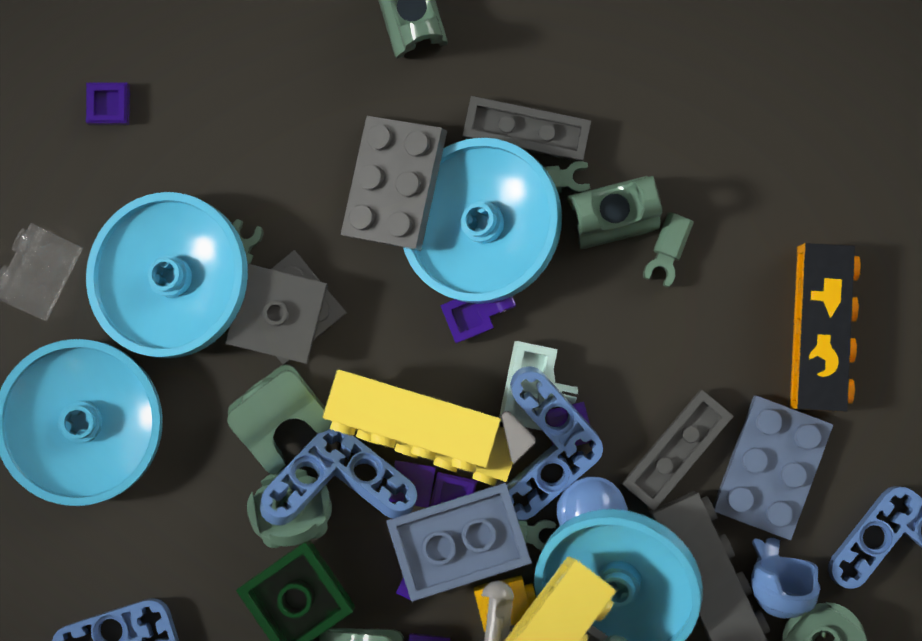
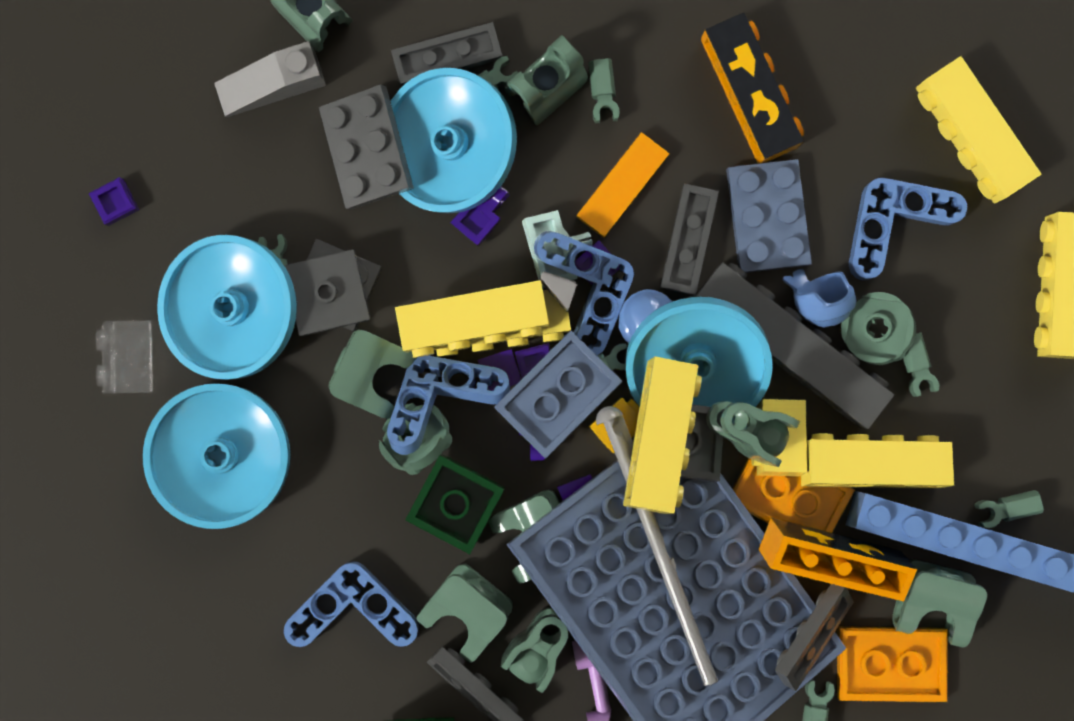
camera: 30 degrees left, 0 degrees up
(331, 62) = (271, 79): none -> light grey slope
(638, 357) = (622, 185): none -> light orange tile

